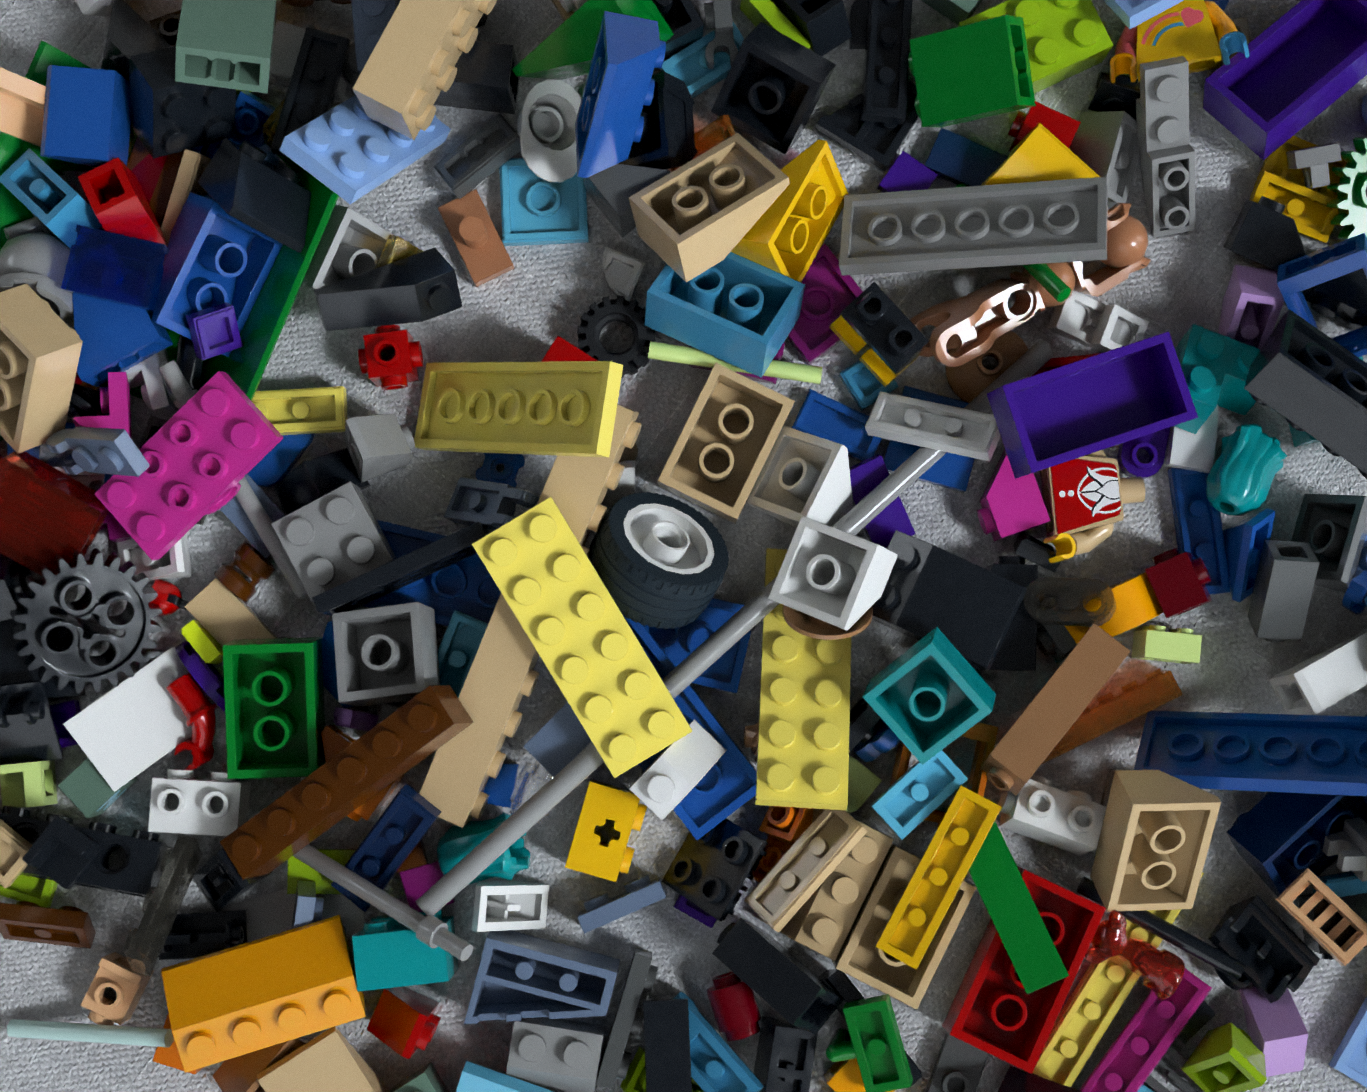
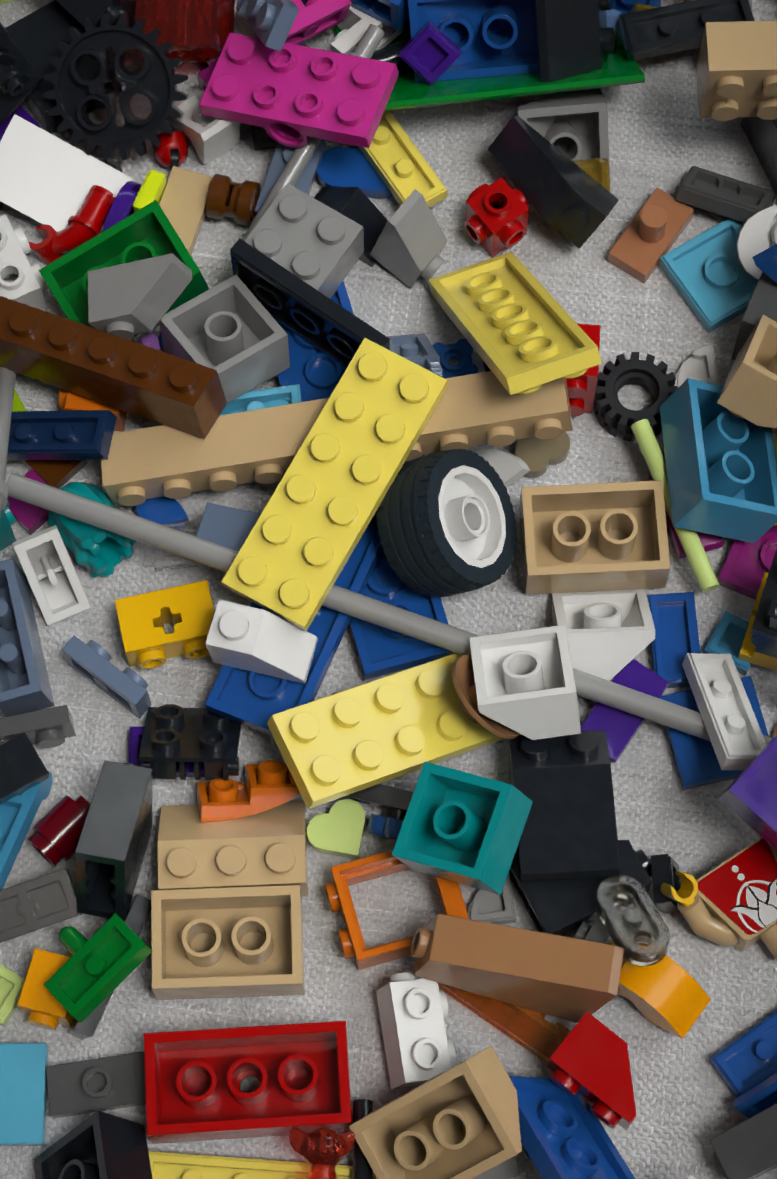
camera: 65 degrees right, 15 degrees down
(311, 716) = (135, 294): none -> light grey slope
(356, 152) = (659, 78): light blue plate -> none
(805, 867) = (234, 812): tan tile -> none
(918, 793) = (364, 878): medium azure plate -> none
(938, 877) = (291, 932): yellow plate -> none
(1011, 503) = (697, 833): dark pink slope -> none
(1015, 915) = (305, 1017): green tile -> none
(1161, 691) = (598, 1068): none -> red slope
(1173, 646) = (648, 1059): yellowish green piece -> none
(1179, 582) = (716, 1033): dark red brick -> none

